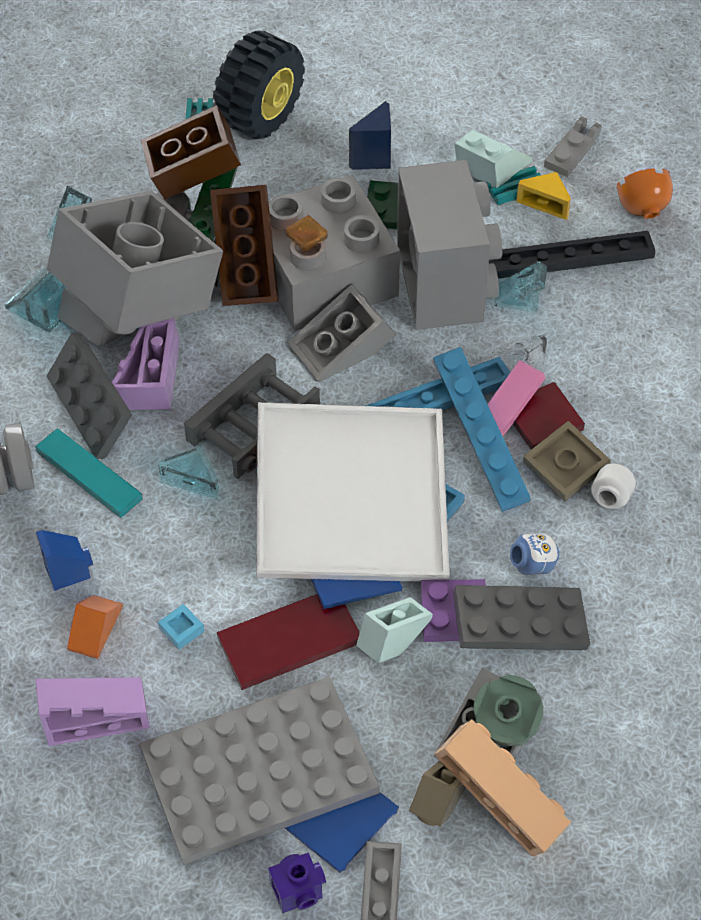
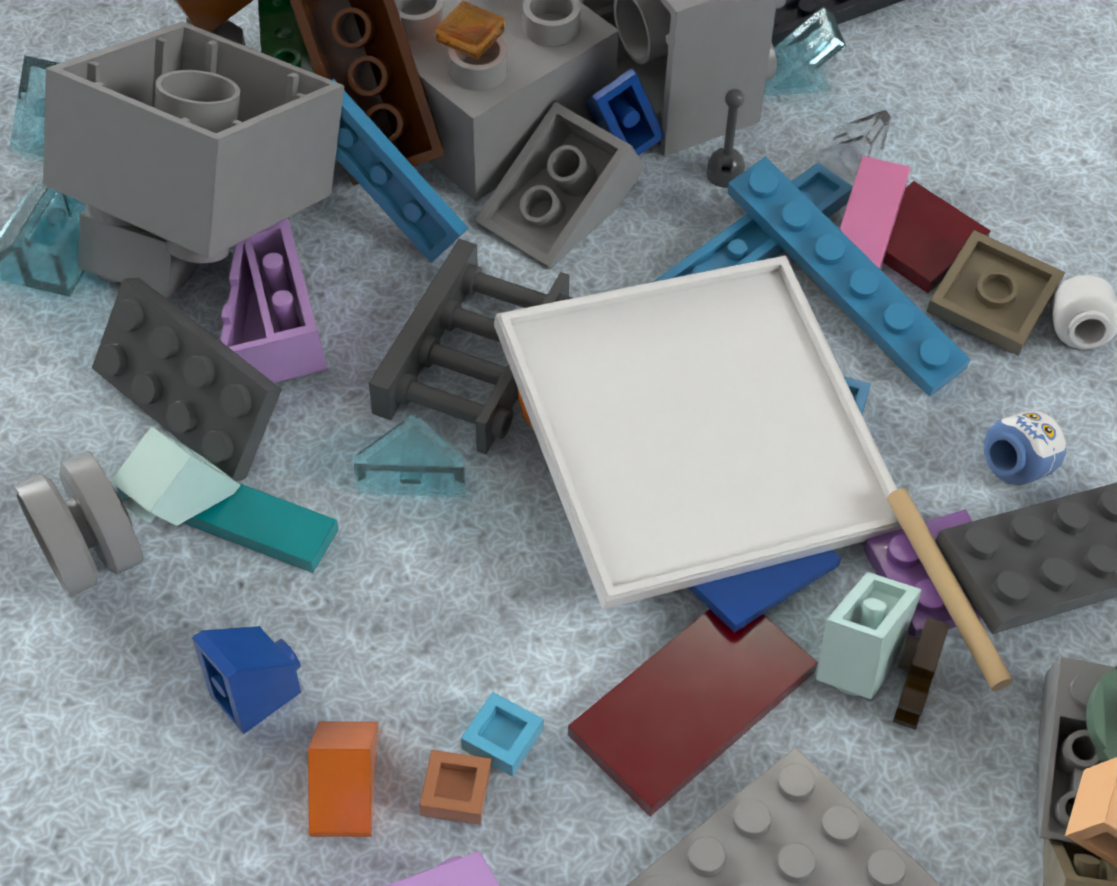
camera: 20 degrees left, 0 degrees up
(60, 449) = (170, 480): none -> light aqua slope
(146, 646) = (455, 787): none -> nougat plate
(242, 310) = (395, 183): none -> dark azure plate
(394, 301) = (626, 112): none -> blue slope
(417, 652) = (921, 660): none -> dark brown plate
(447, 339) = (727, 157): none -> dark grey hinge
(448, 618) = (949, 590): none -> tan bar

